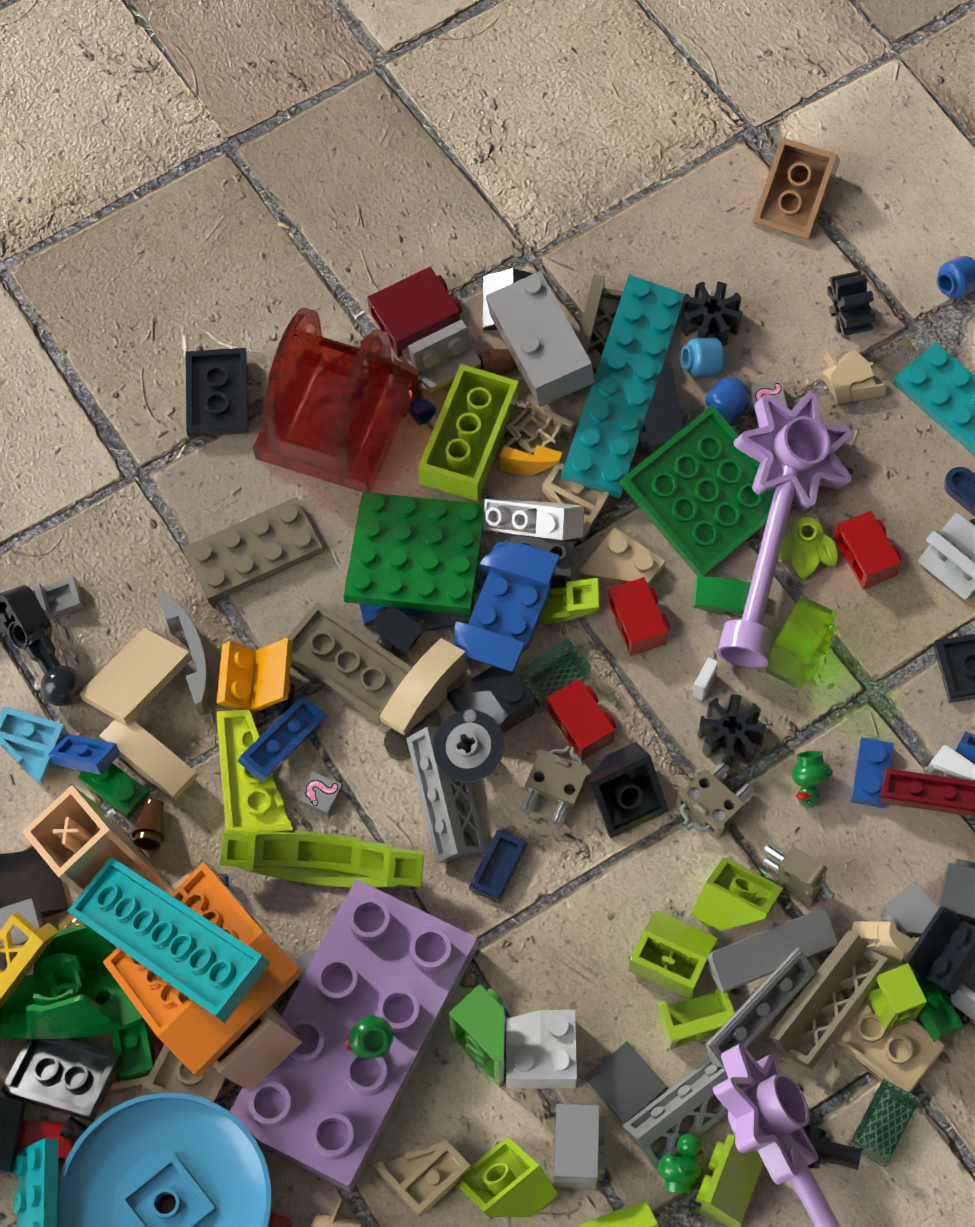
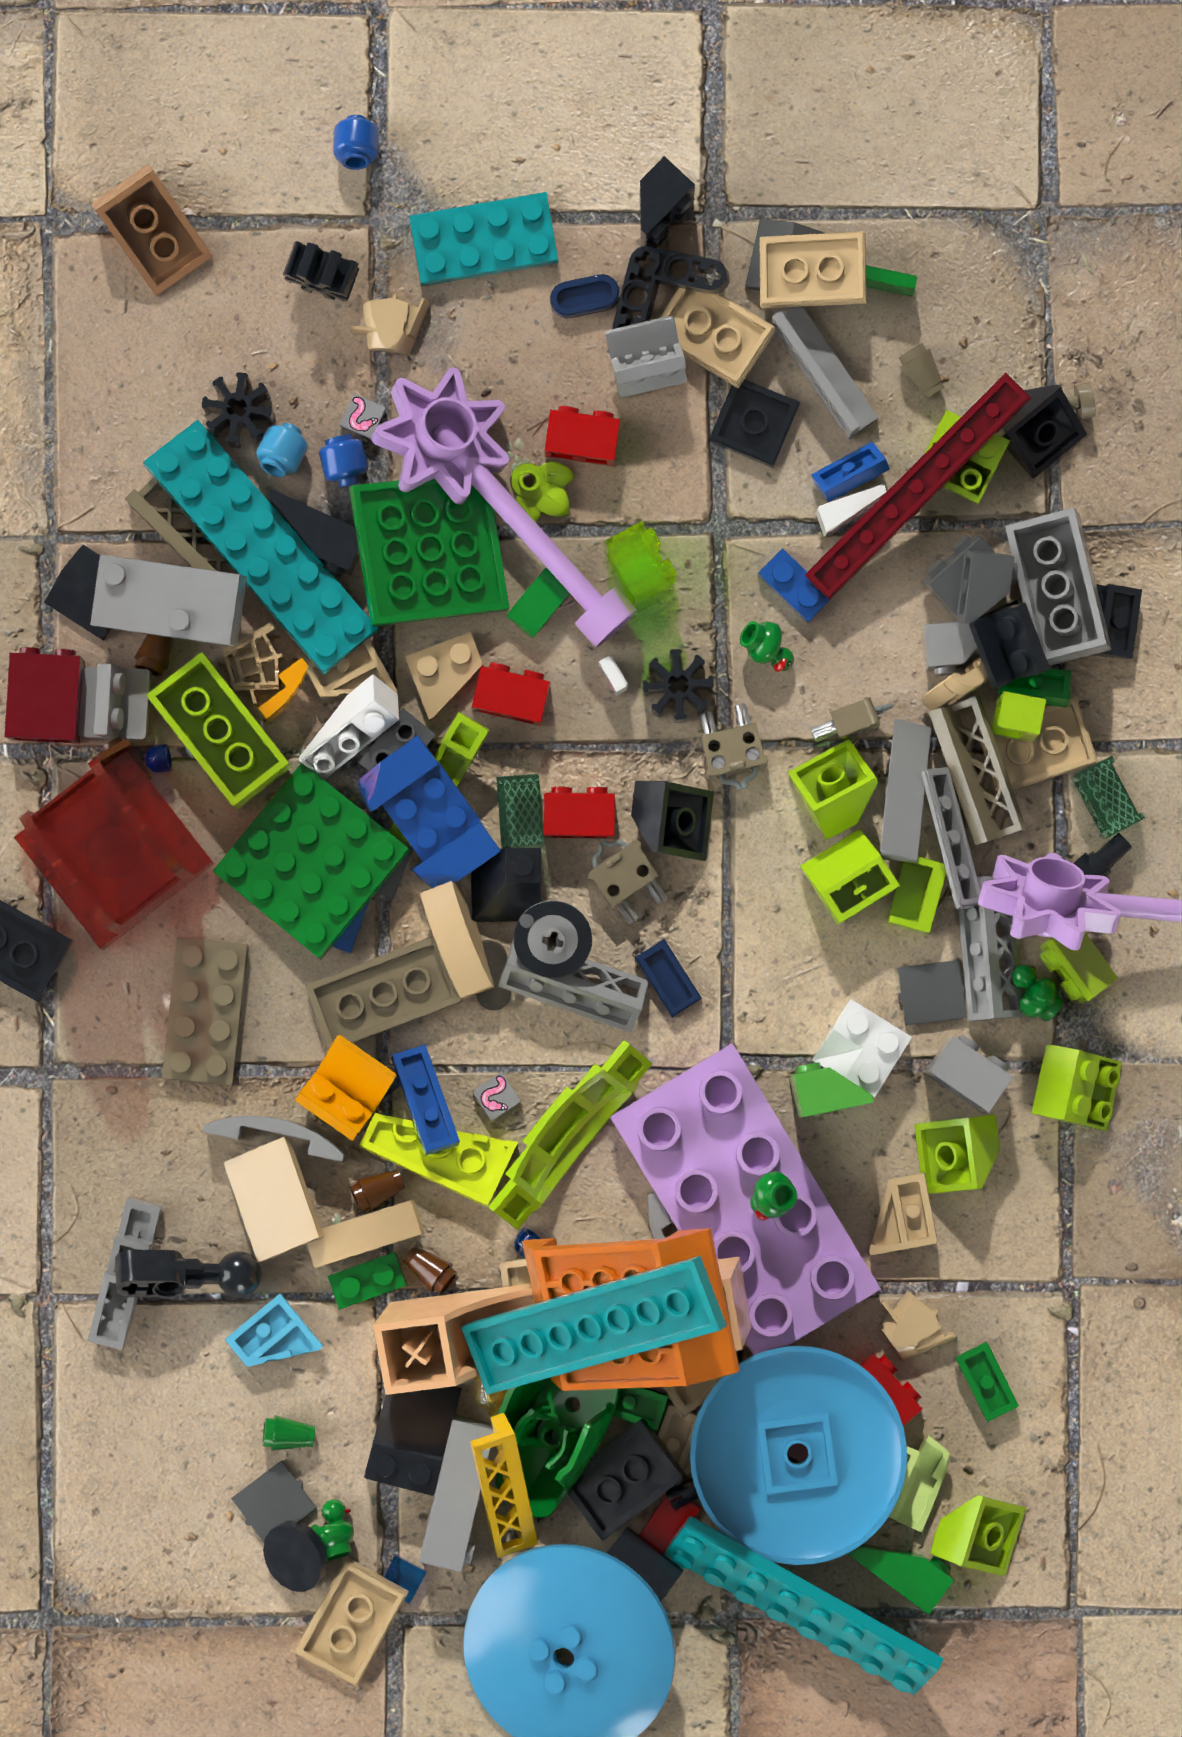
camera: 55 degrees left, 20 degrees up
(84, 754) = (325, 1291): blue plate -> none
(190, 747) = (376, 1189): none -> reddish brown cone
(396, 630) = (384, 929): black brick -> none

